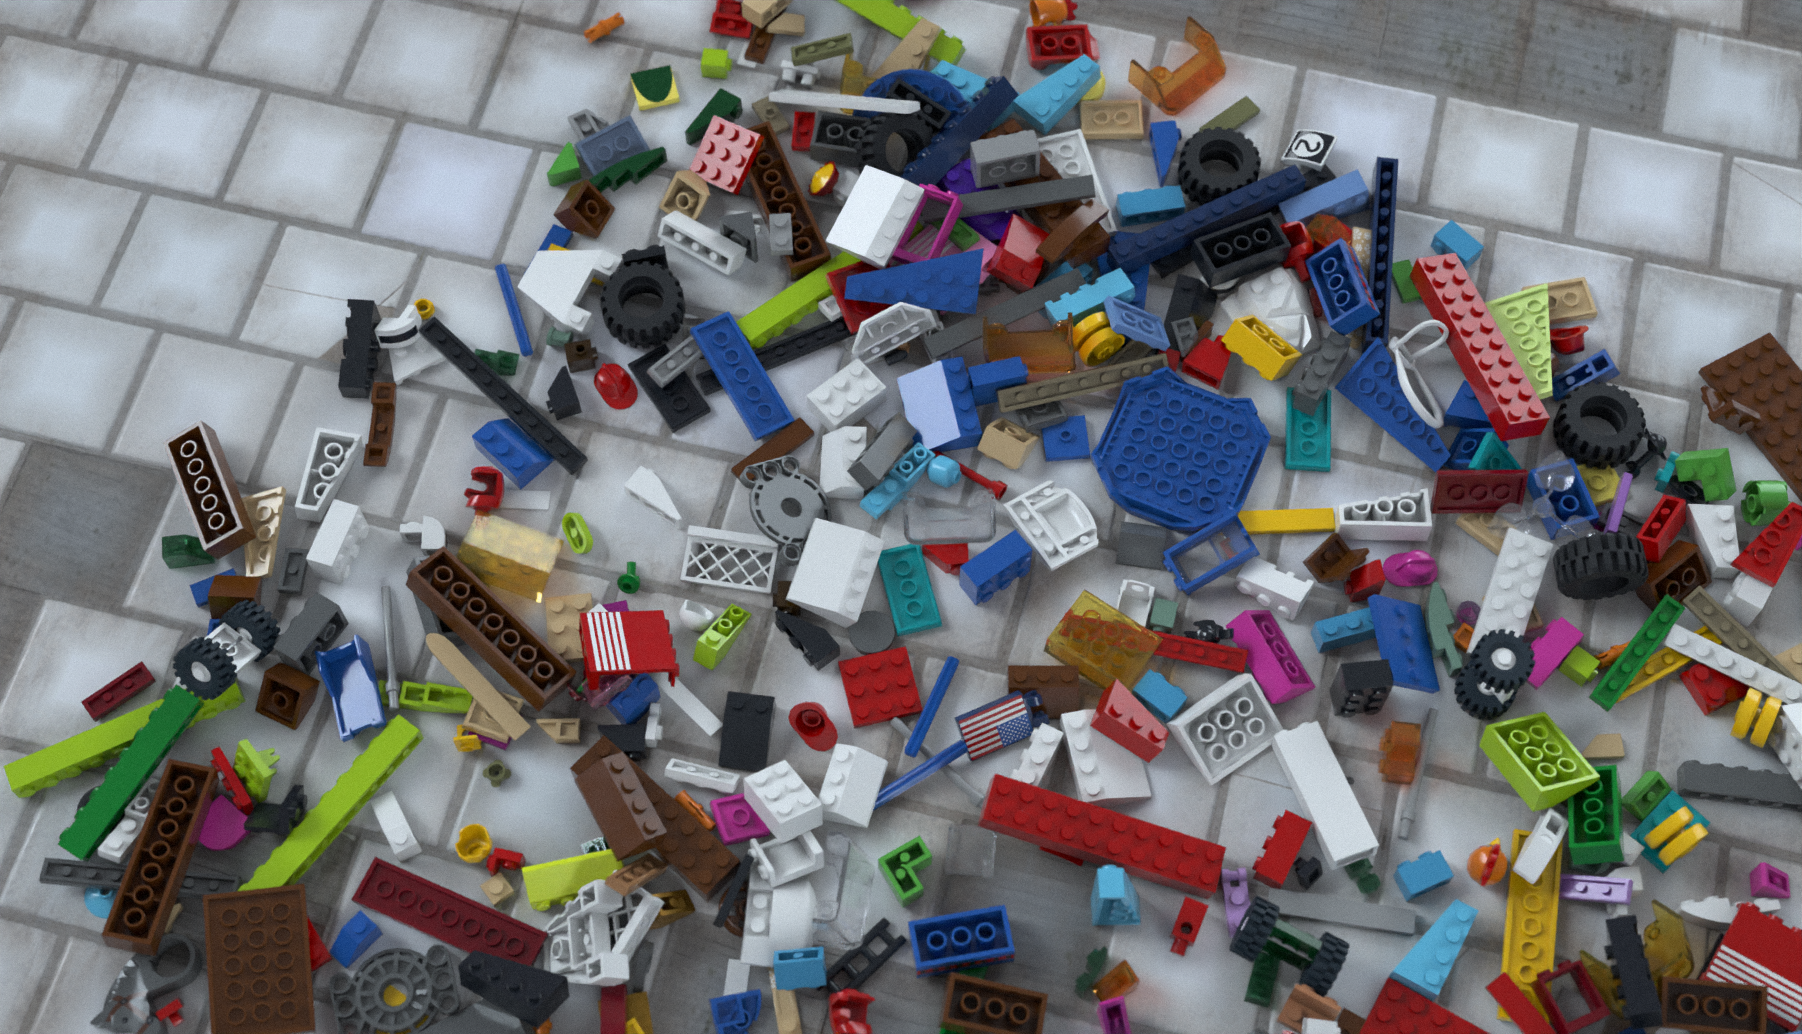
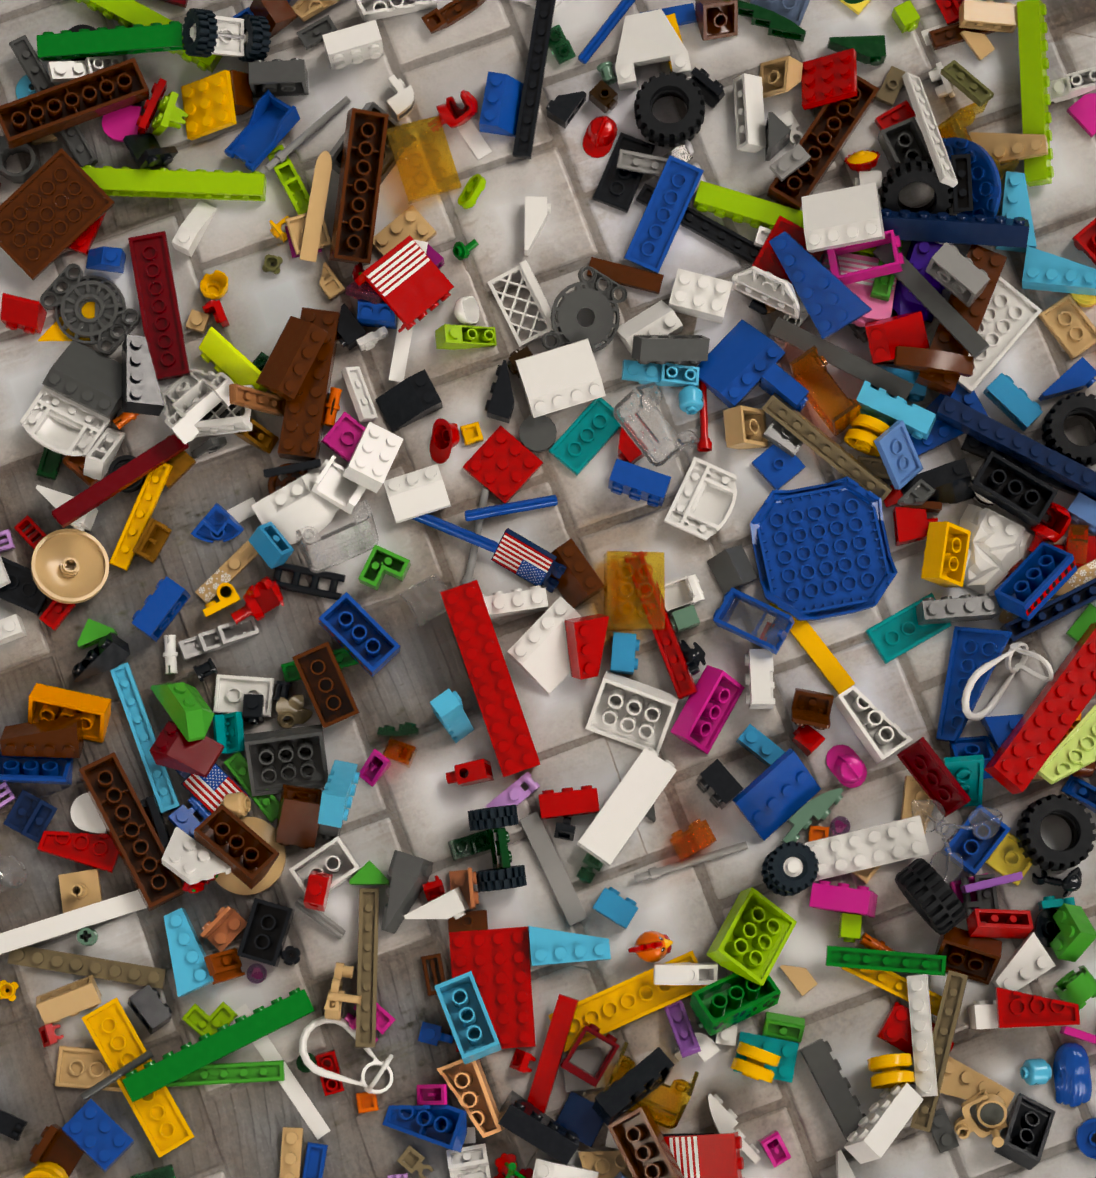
camera: 55 degrees right, 15 degrees up
(280, 720) = (208, 105): none -> yellow plate
(825, 695) = (471, 433): none -> yellow tile

